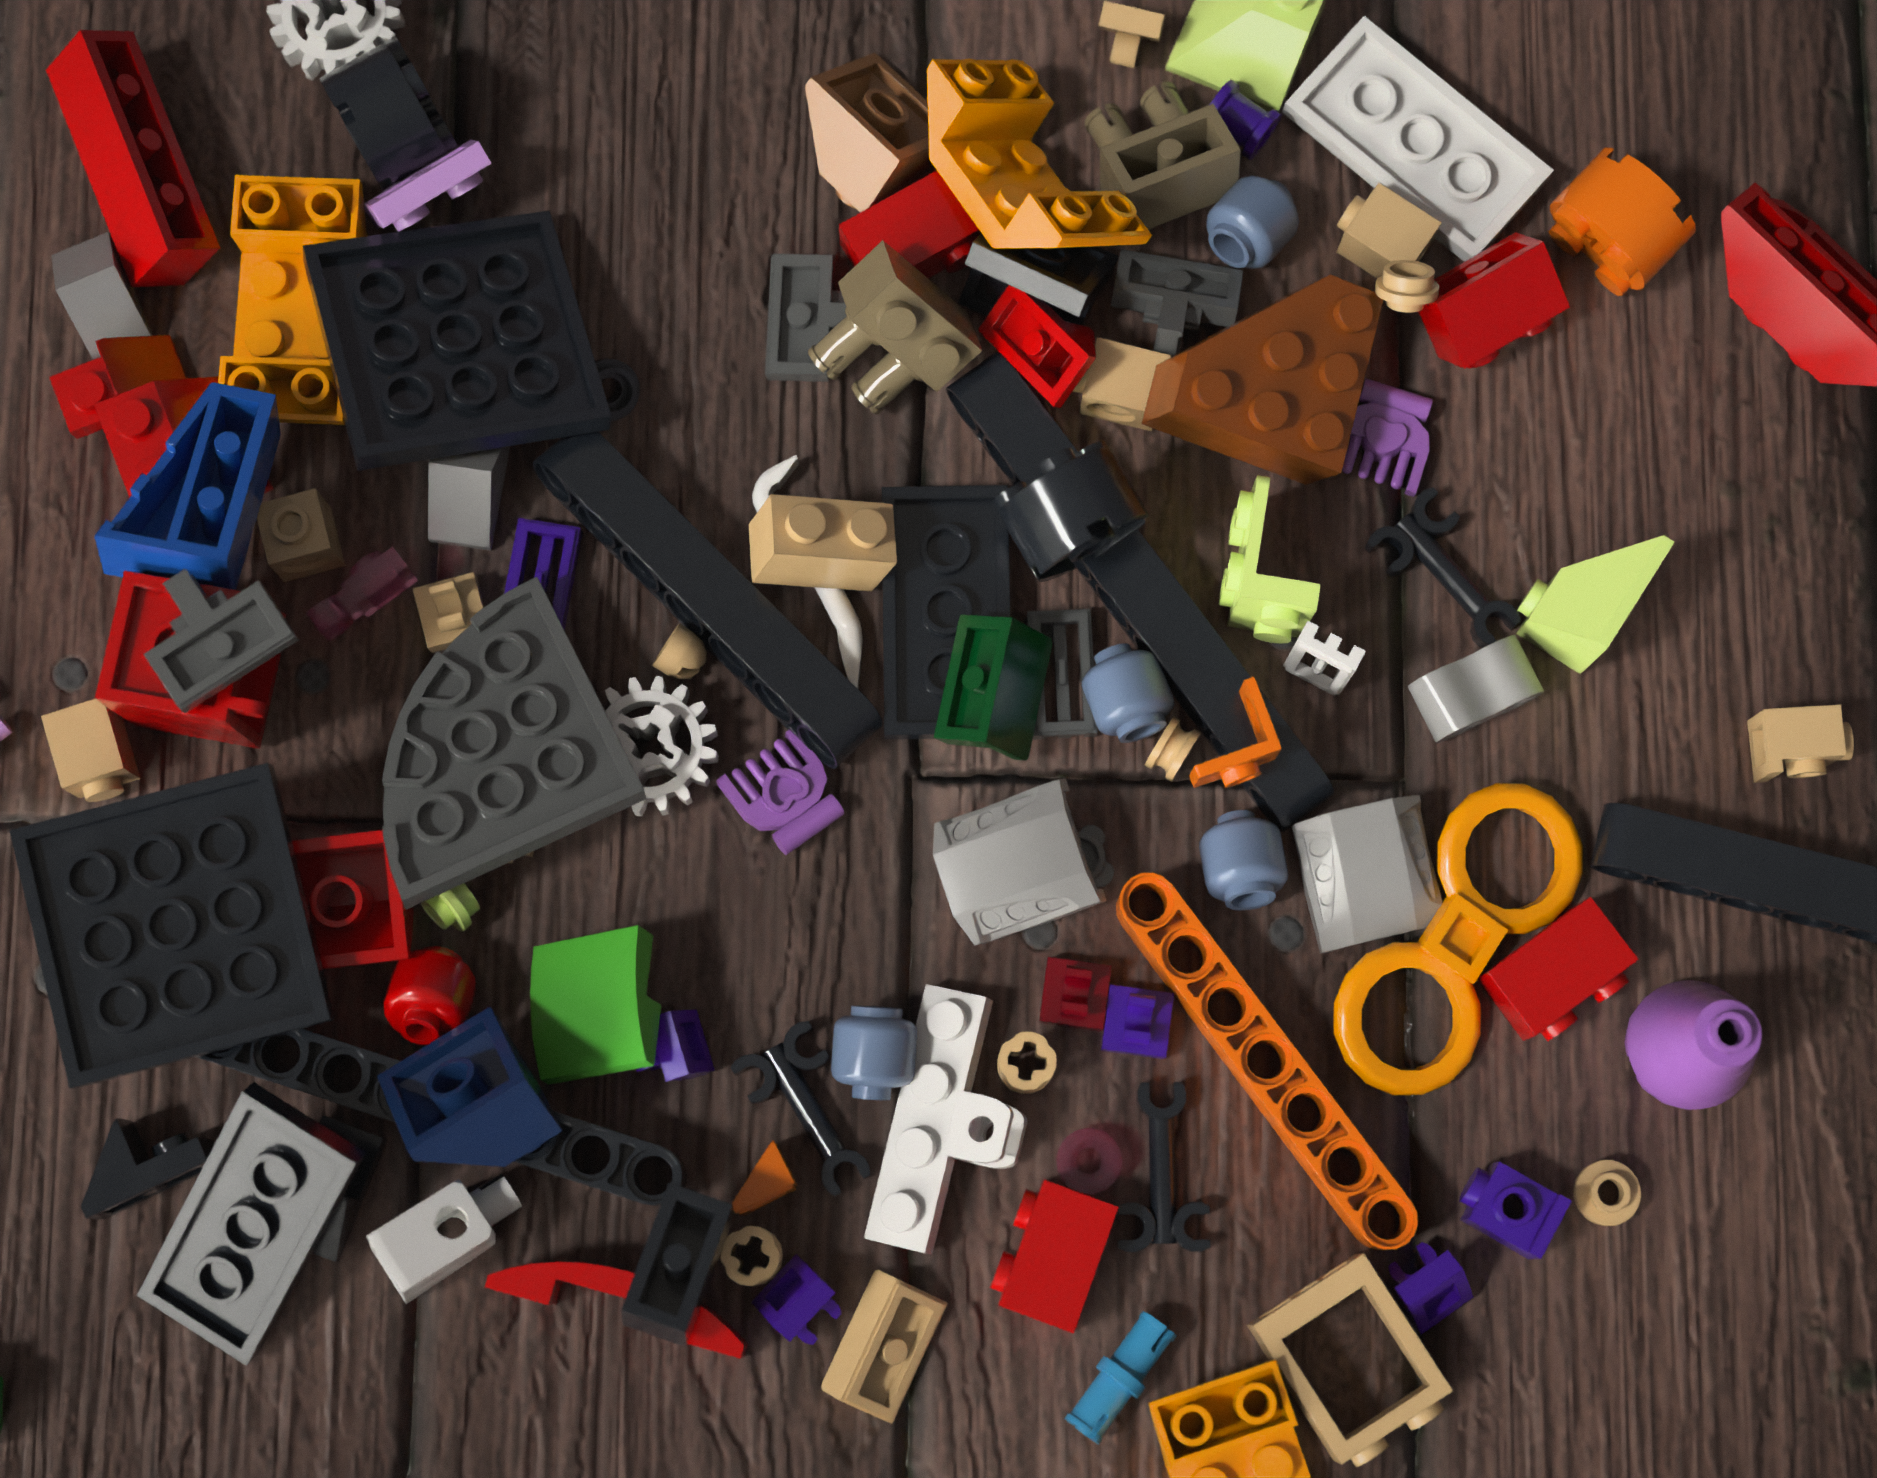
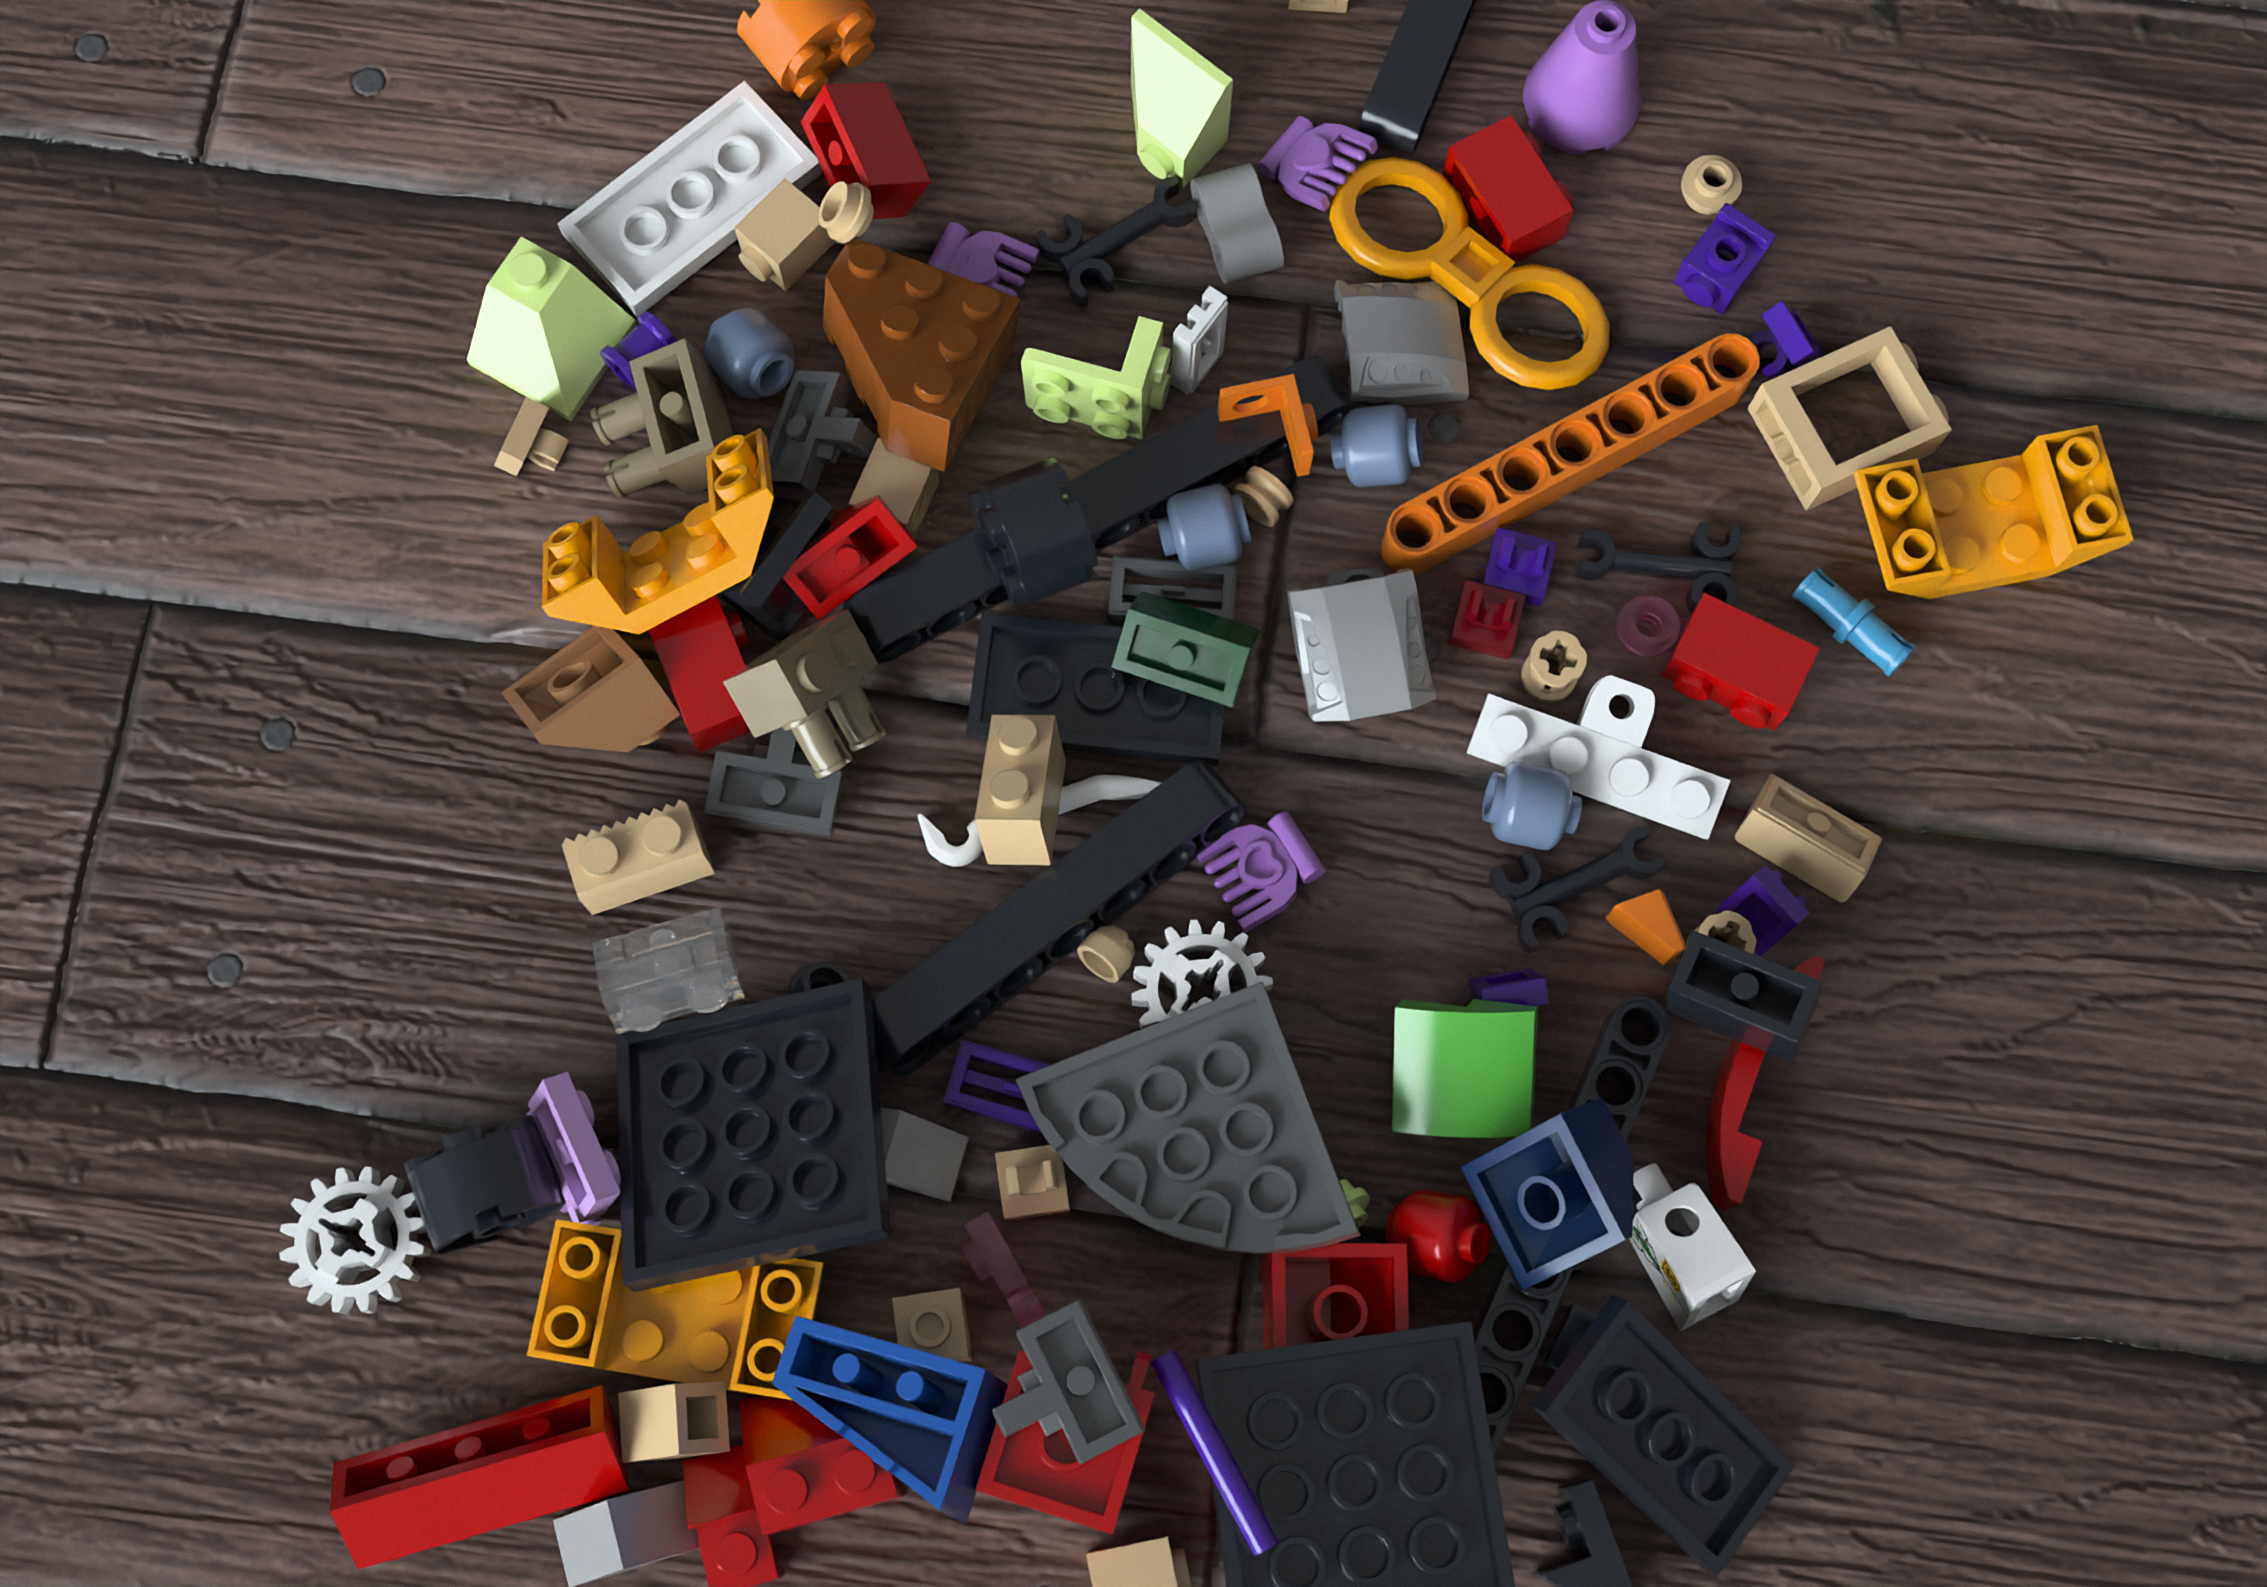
camera: 85 degrees left, 5 degrees down
(180, 785) = (1215, 1452): none -> dark purple bar
(193, 316) = (673, 1421): none -> tan brick
(609, 245) = (668, 971): none -> clear brick
(718, 200) = (637, 858): none -> tan brick
(1565, 756) = (1307, 158): none -> medium lavender piece

